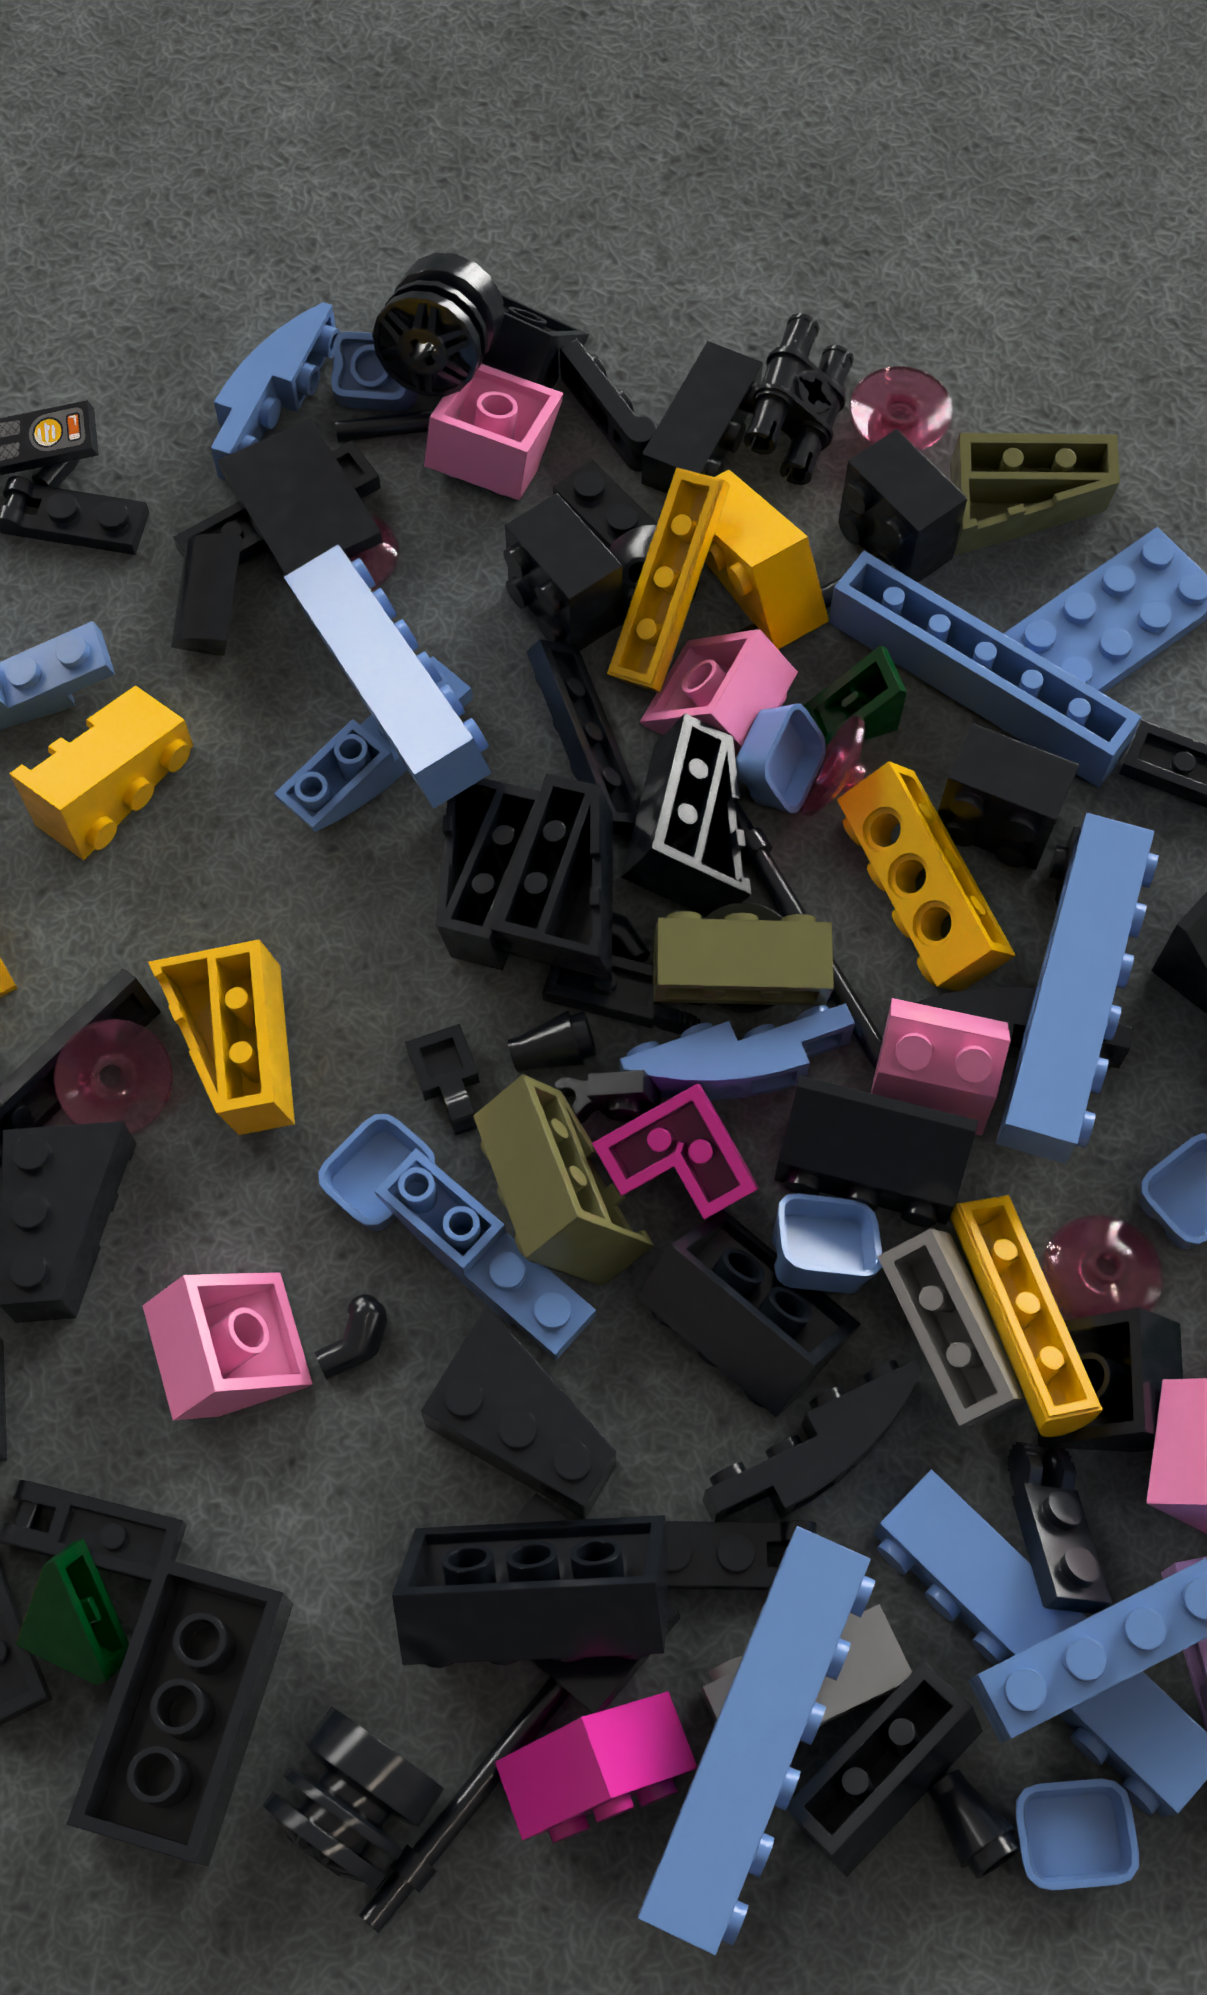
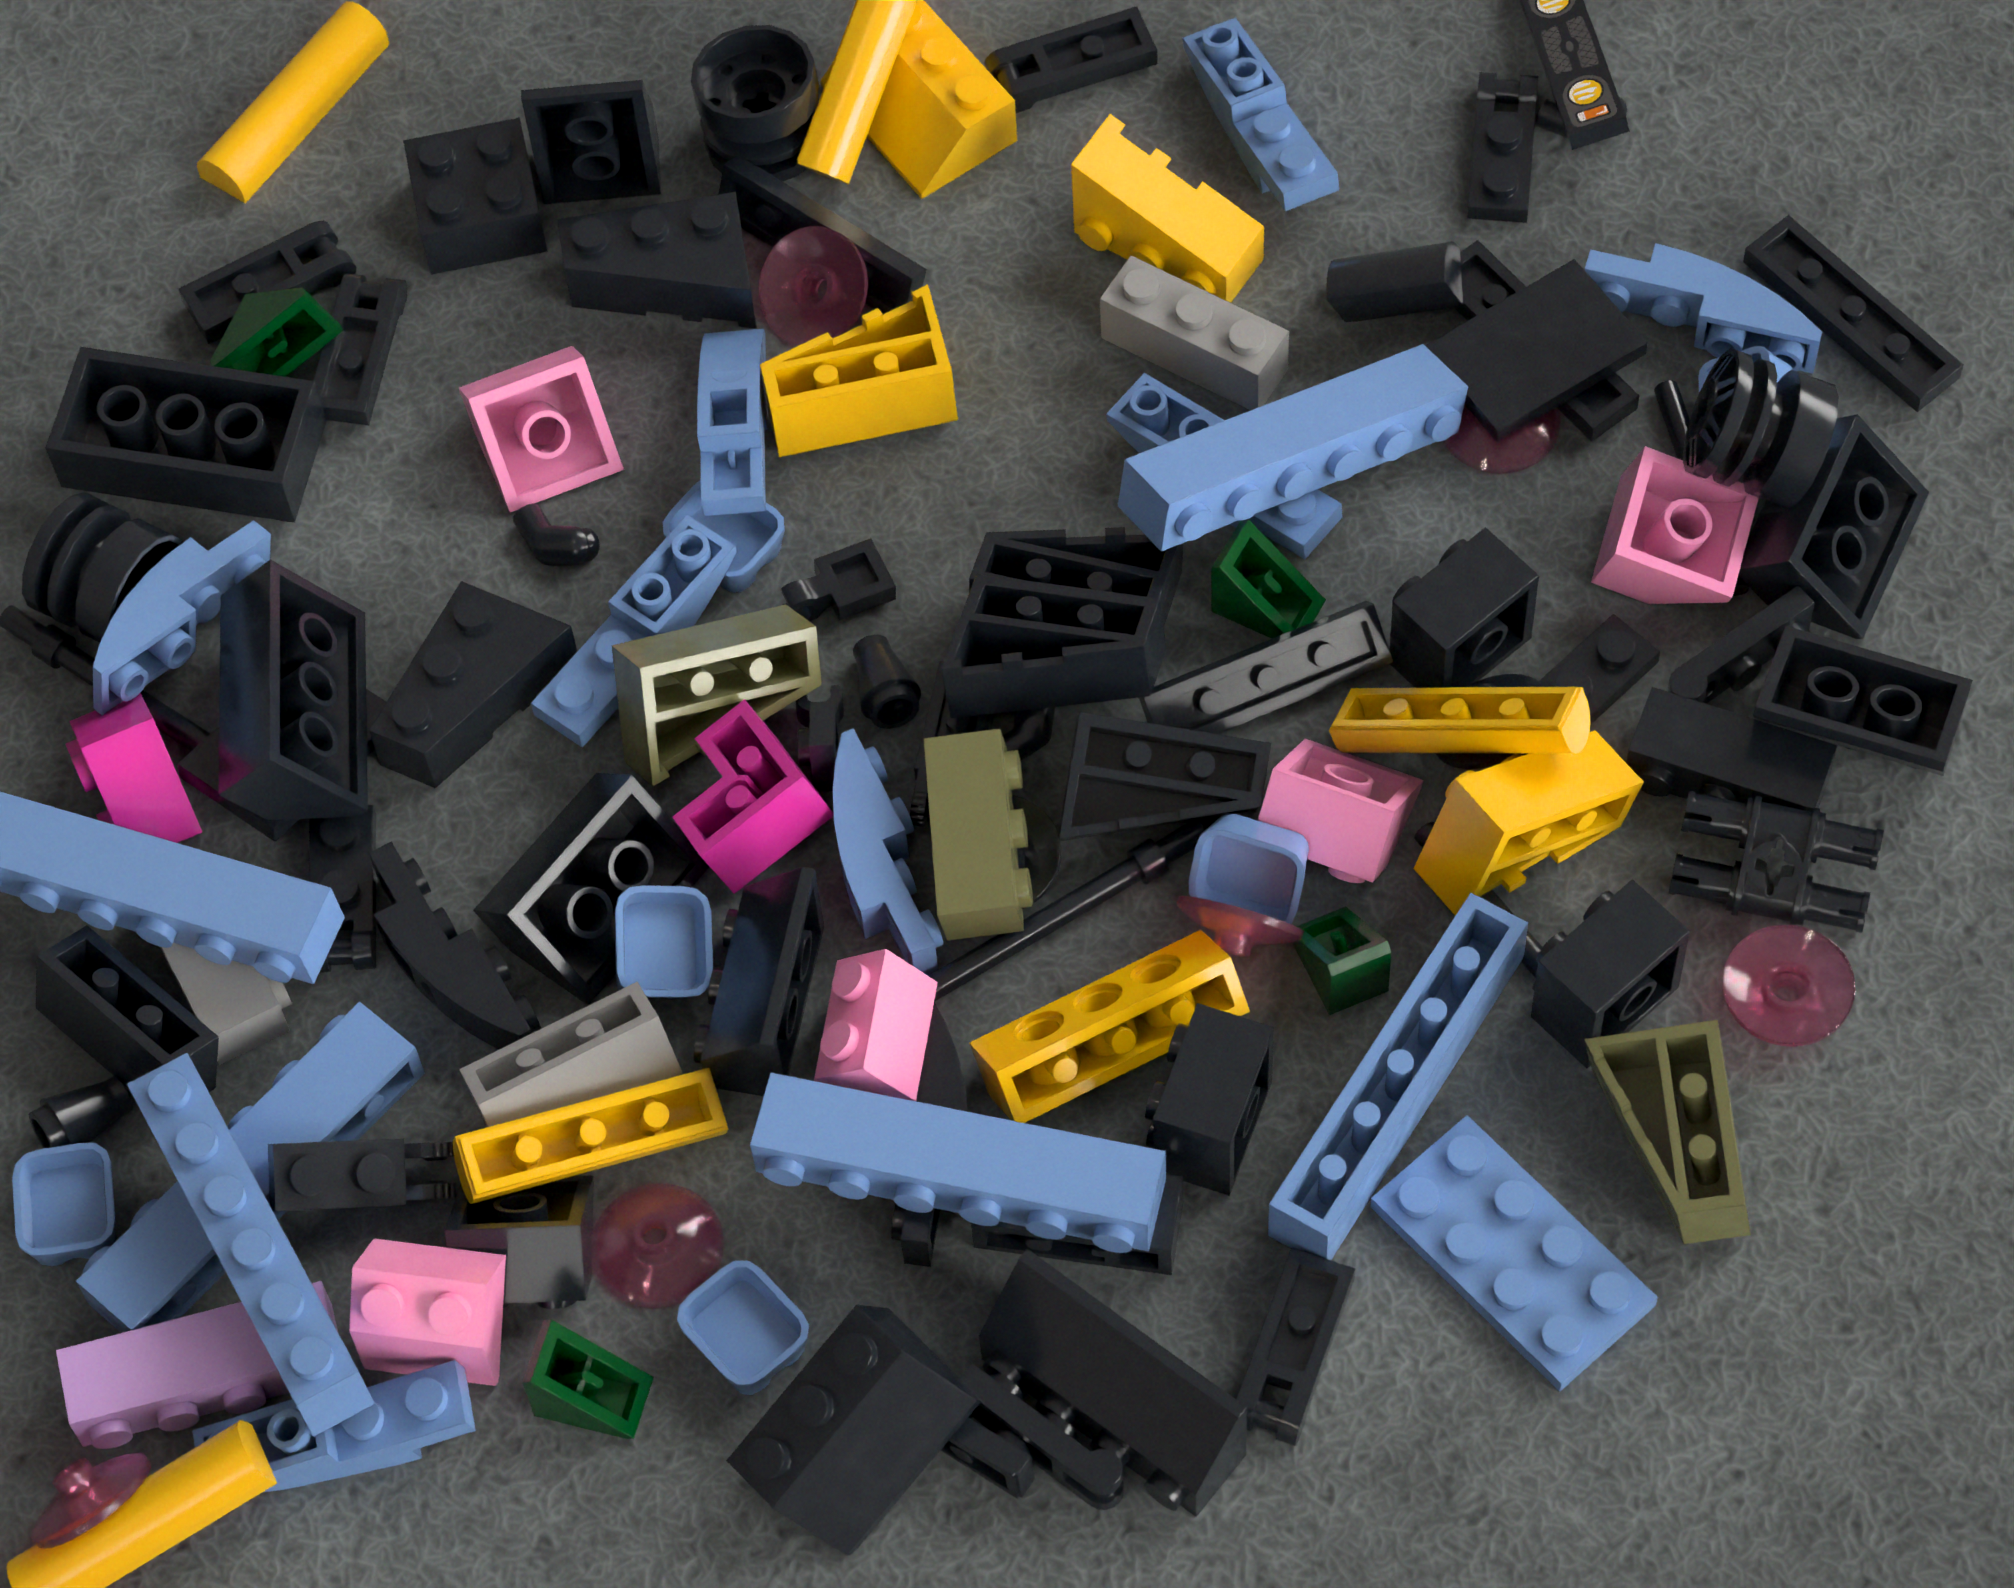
camera: 90 degrees right, 5 degrees down
(230, 759) = (1194, 334): none -> light grey brick
(258, 1147) = (732, 422): none -> medium blue slope
(319, 278) = (1853, 313): none -> black plate
(420, 1726) = (160, 614): none -> medium blue slope
(508, 729) = (1260, 586): none -> dark green slope
(675, 319) = (1863, 700): none -> black slope

